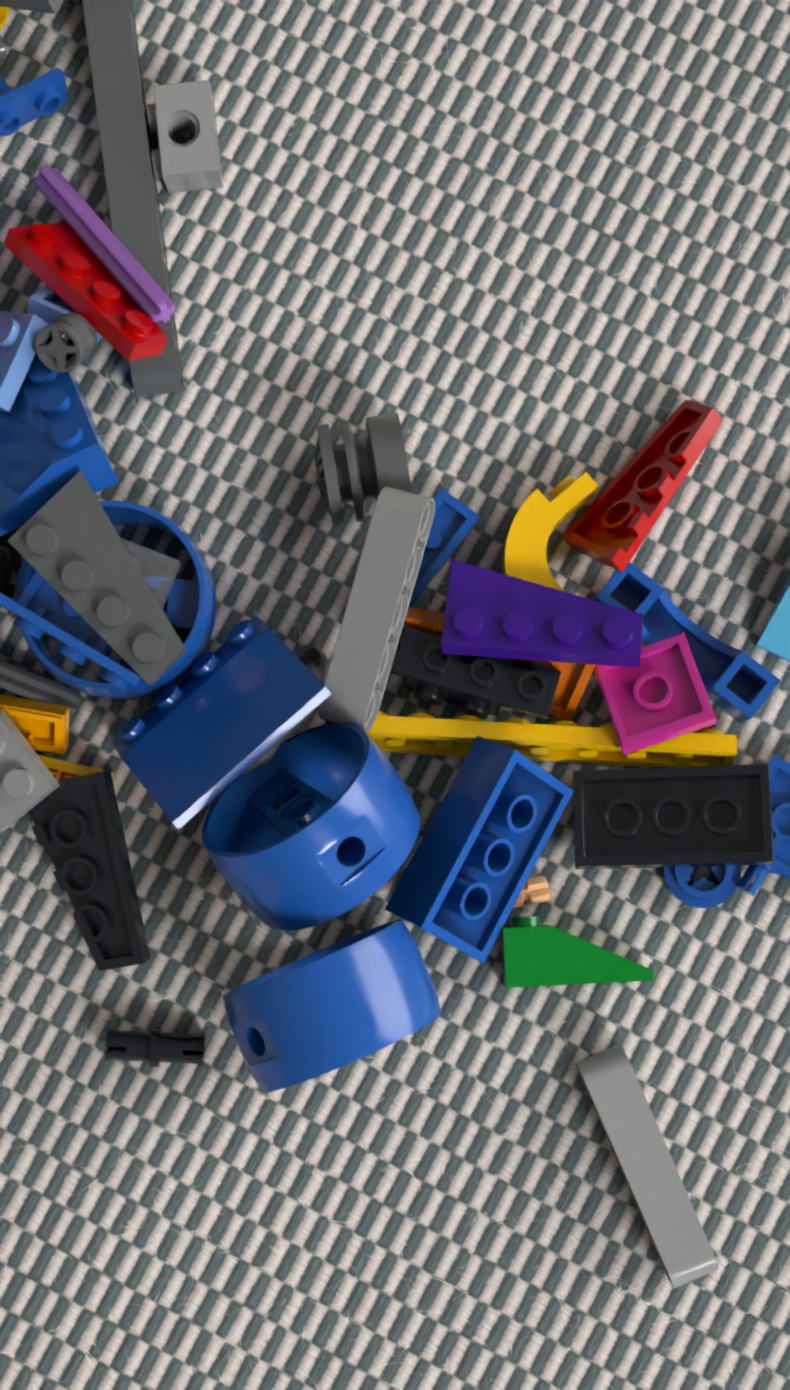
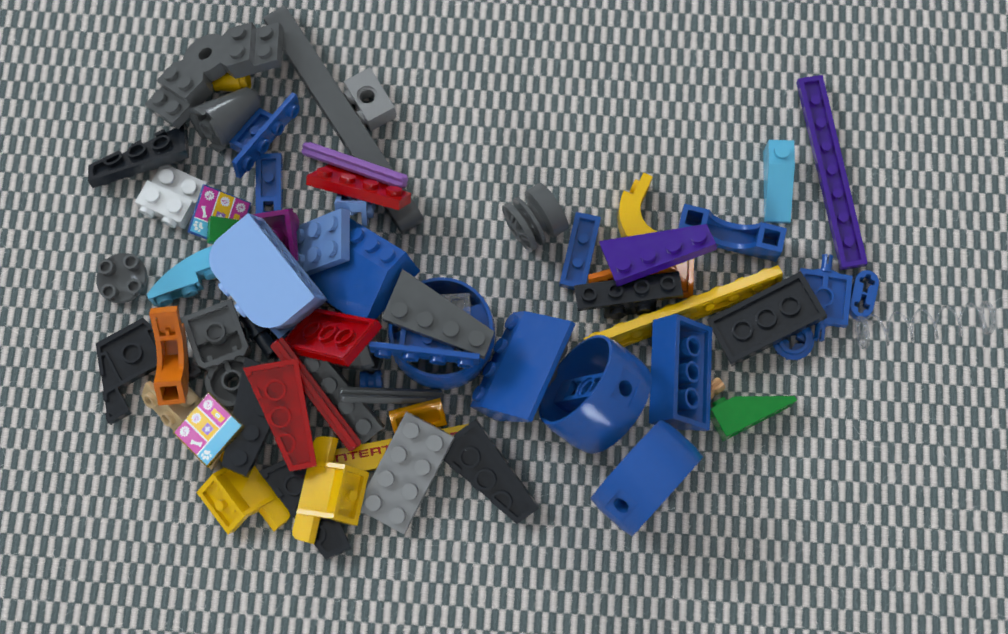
camera: 25 degrees left, 10 degrees down
(57, 352) = (362, 221): dark grey wheel -> none
(155, 1047) = (563, 550): black pin -> none
(377, 607) = (575, 276): light grey beam -> none
(637, 496) = (673, 174): red wing -> none
(647, 1166) = (839, 496): light grey beam -> none
(658, 698) = (729, 264): dark pink plate -> none

